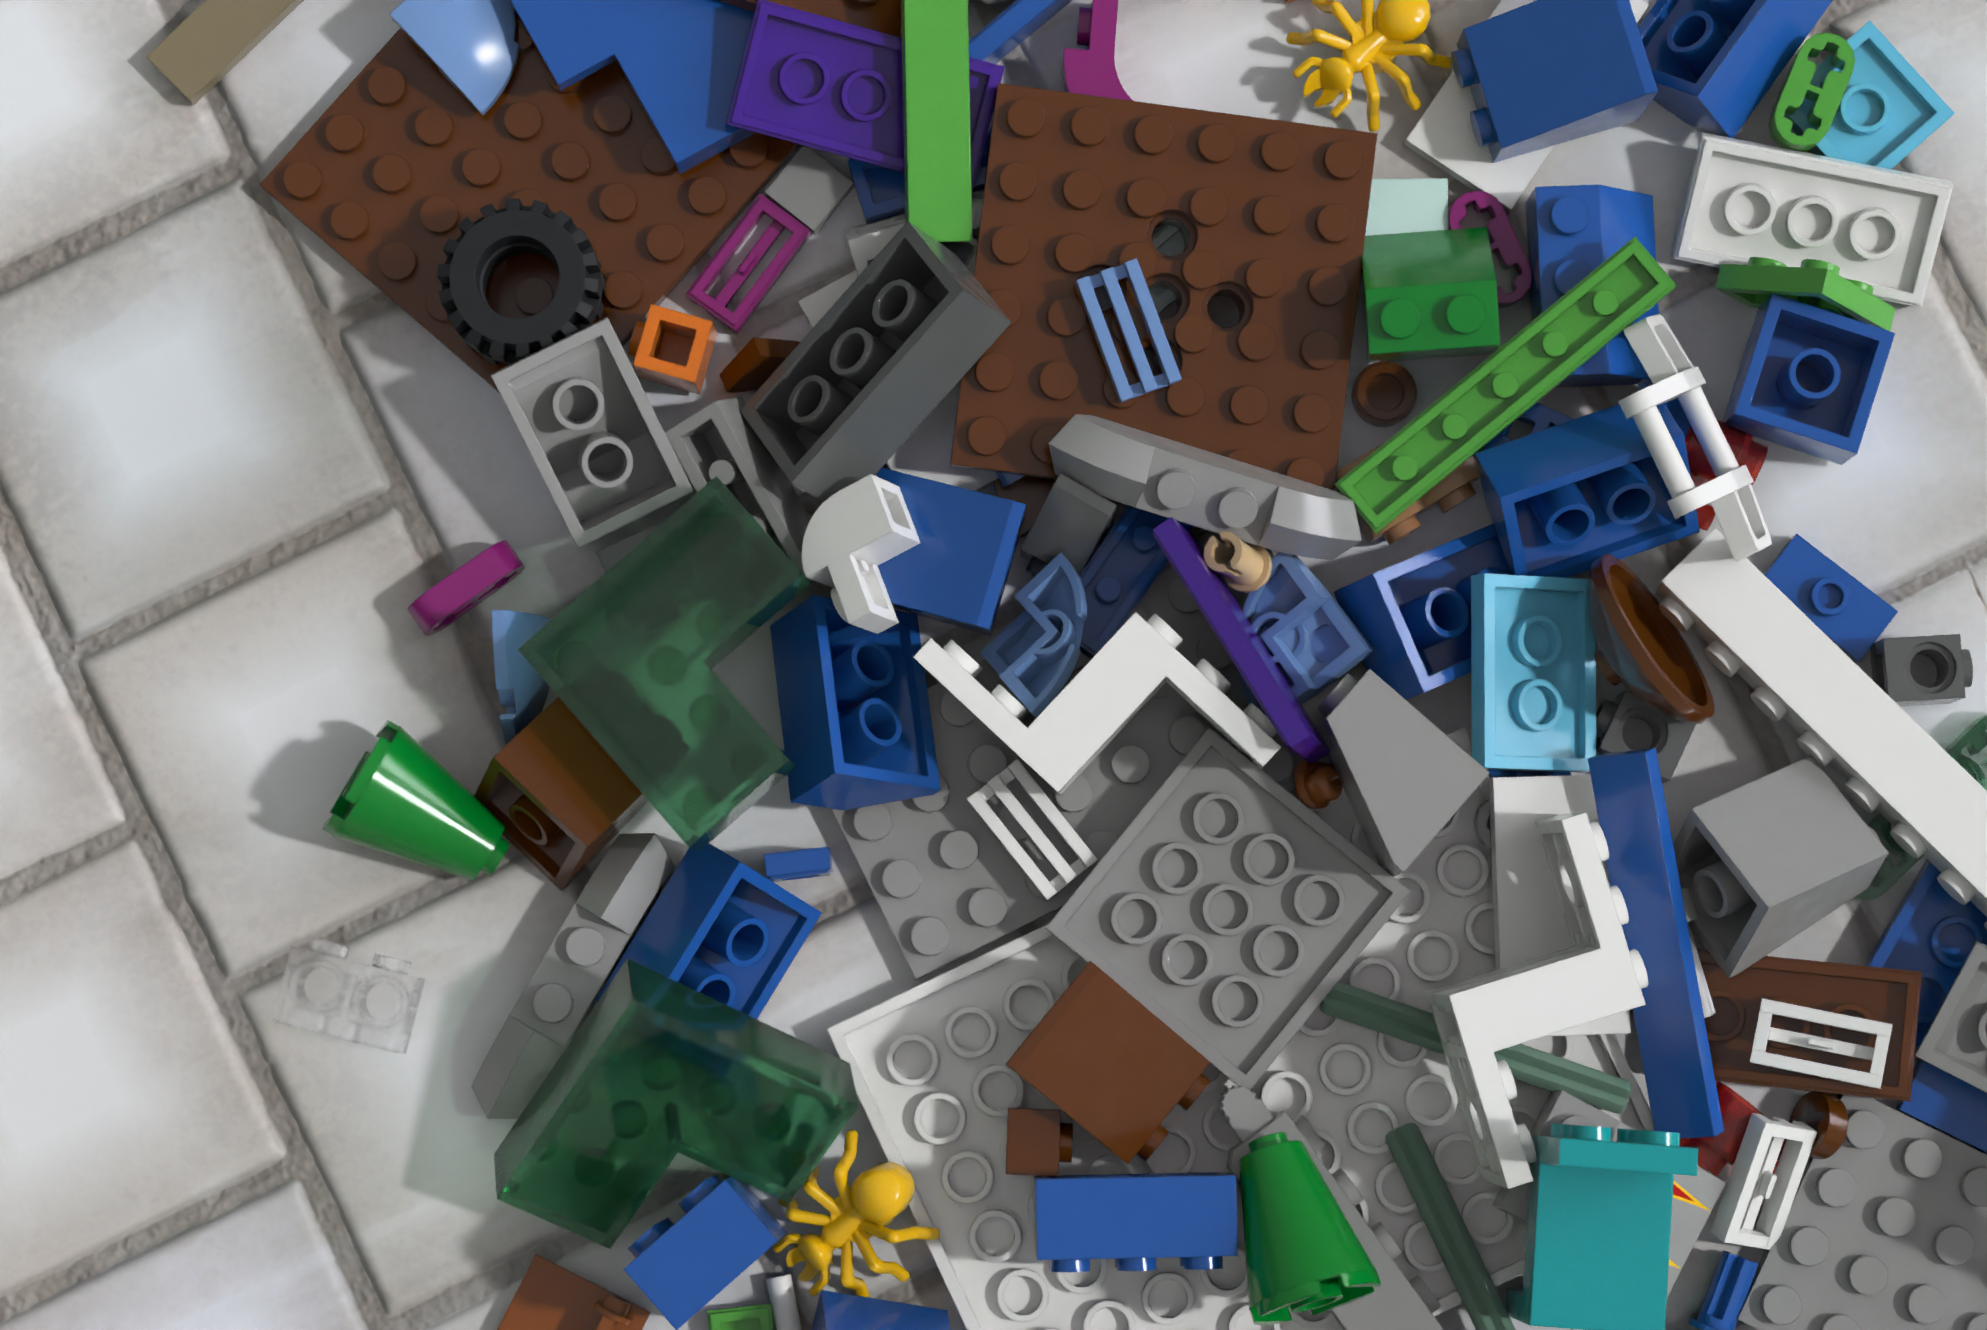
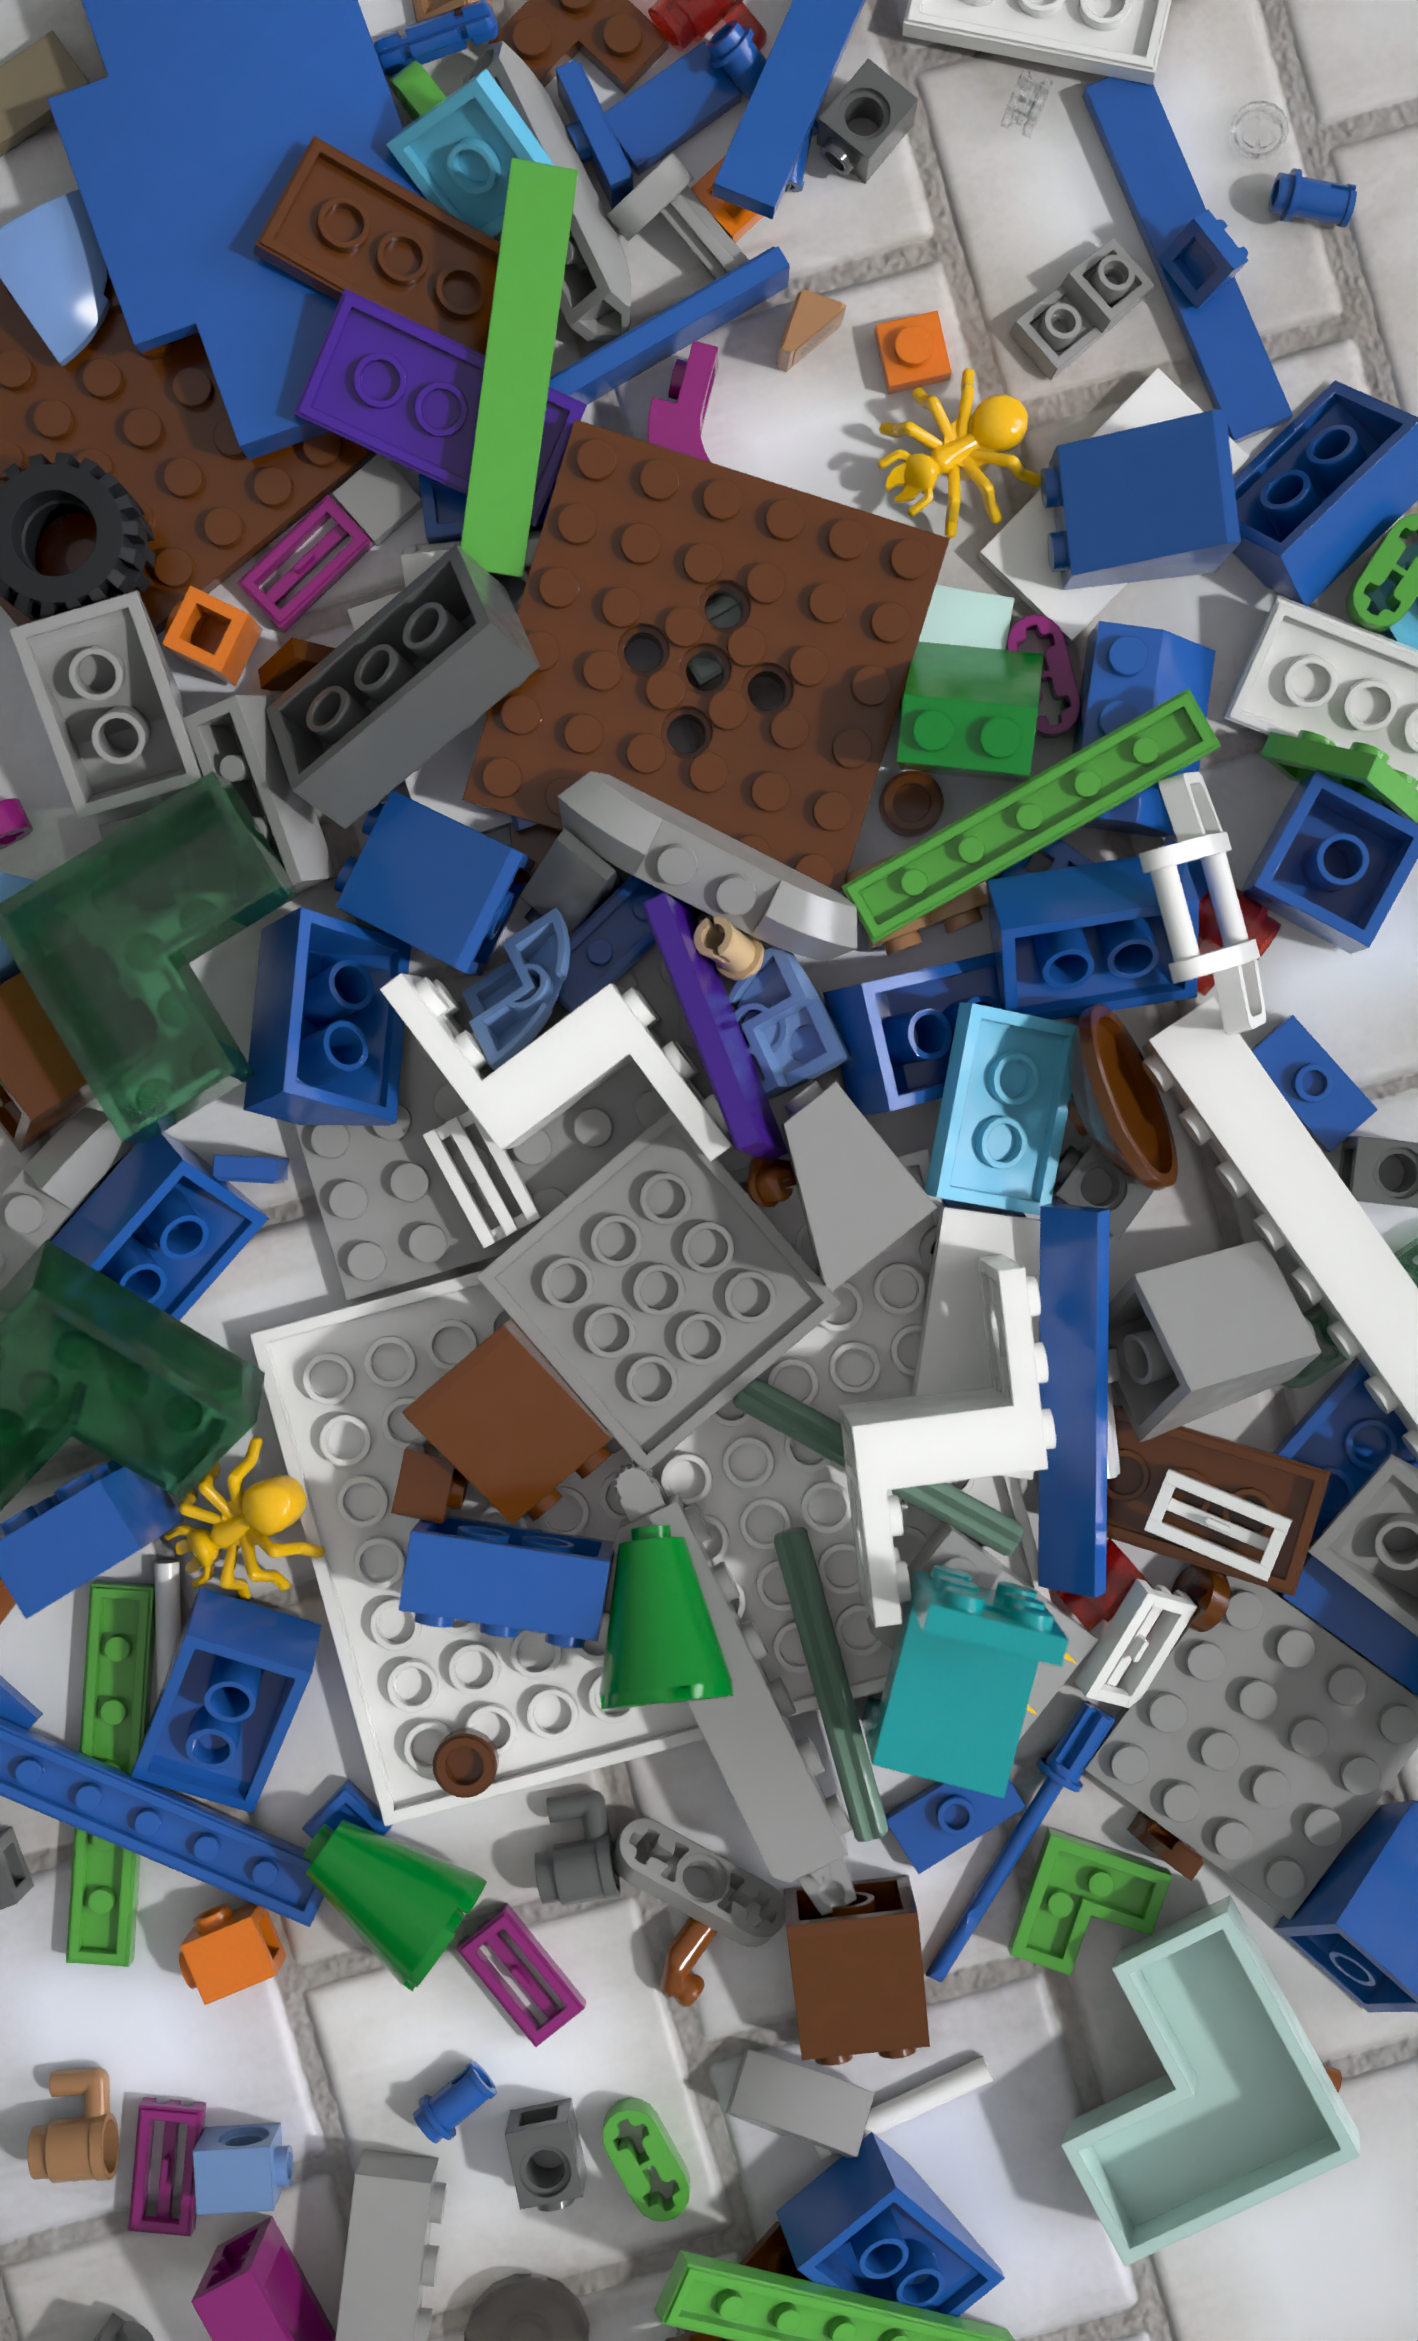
camera: 15 degrees right, 5 degrees up
(847, 543) = (343, 862): white brick -> none
(1109, 279) = (650, 639): medium blue tile -> none

